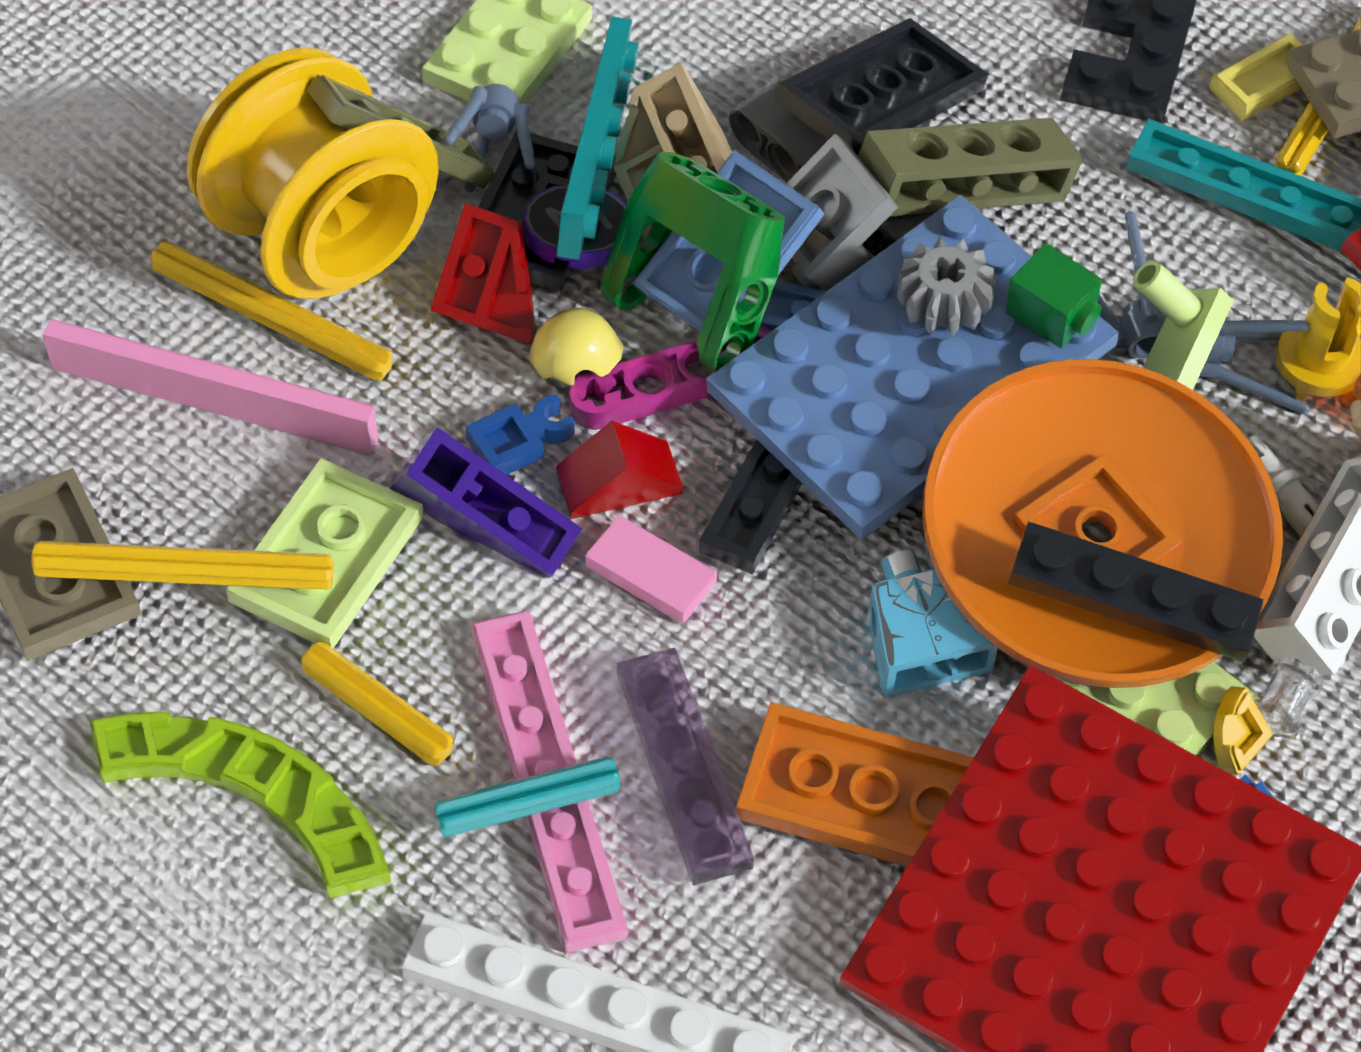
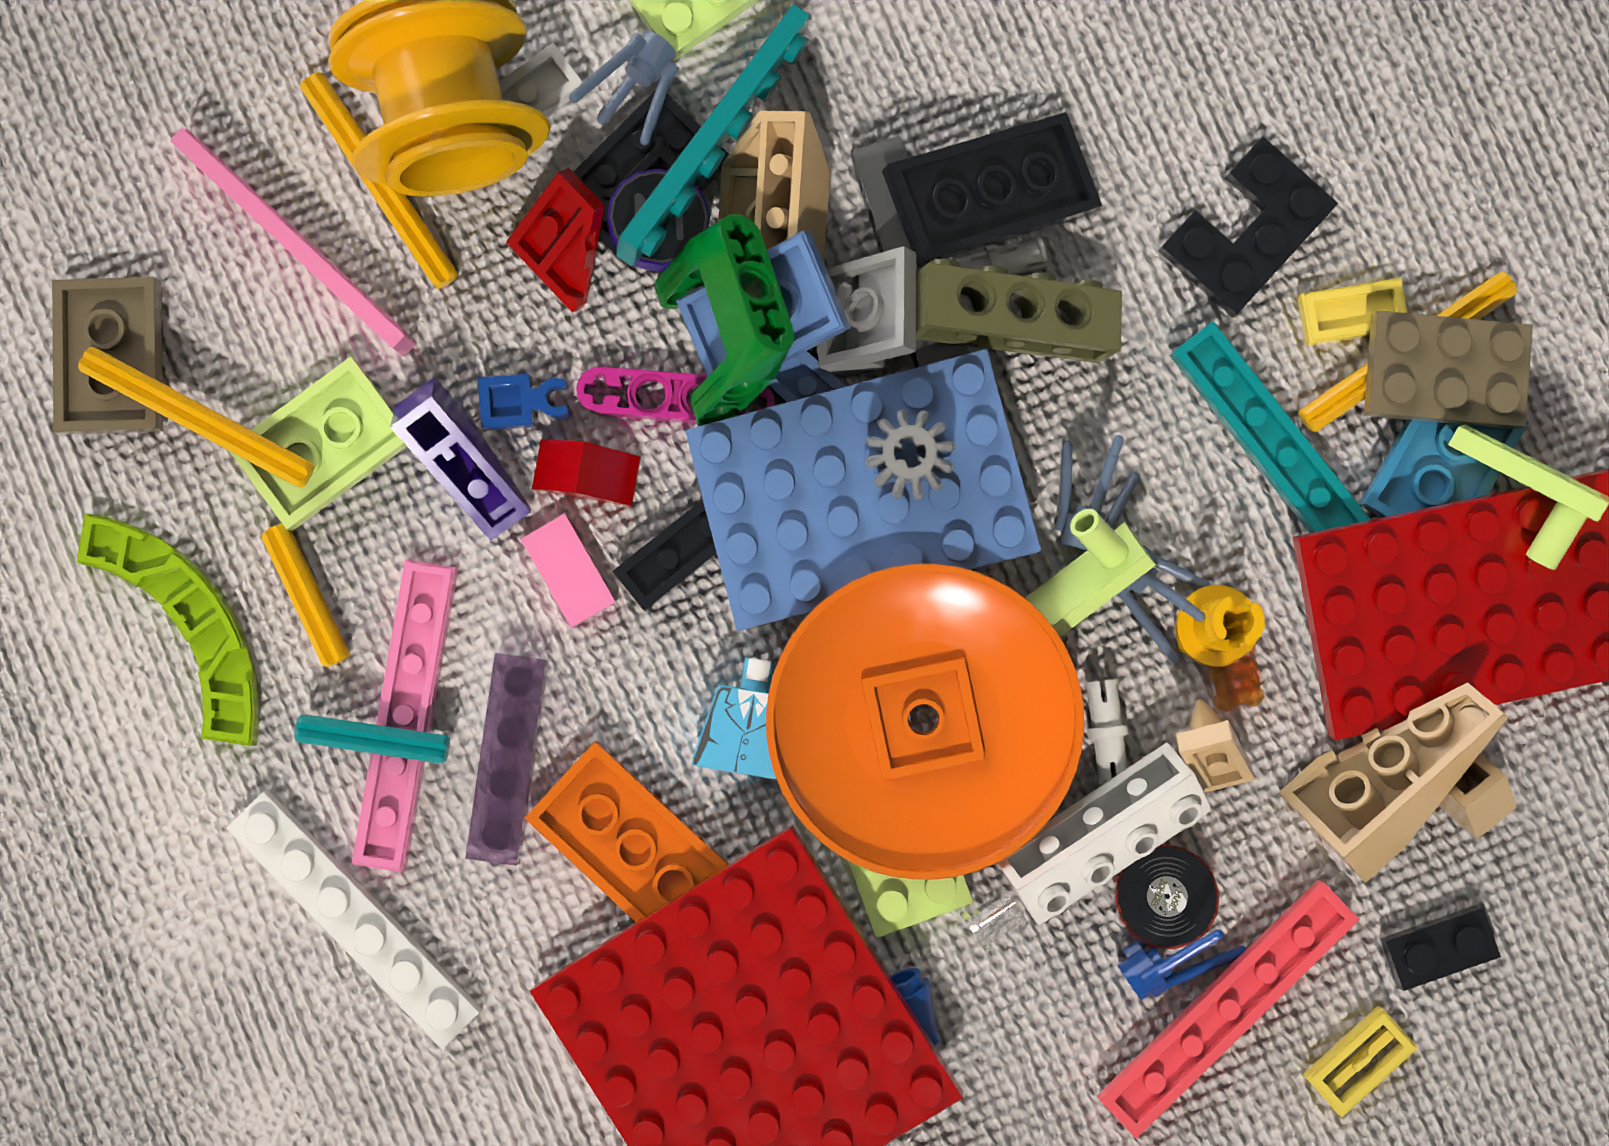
camera: 30 degrees right, 30 degrees up
(353, 108) = (526, 75): olive tile -> none
(573, 343) = (602, 341): light yellow hair -> none
(1054, 296) = (994, 510): green brick -> none
(1136, 591) = (909, 803): black plate -> none
(1238, 730) = (940, 929): yellow tile -> none

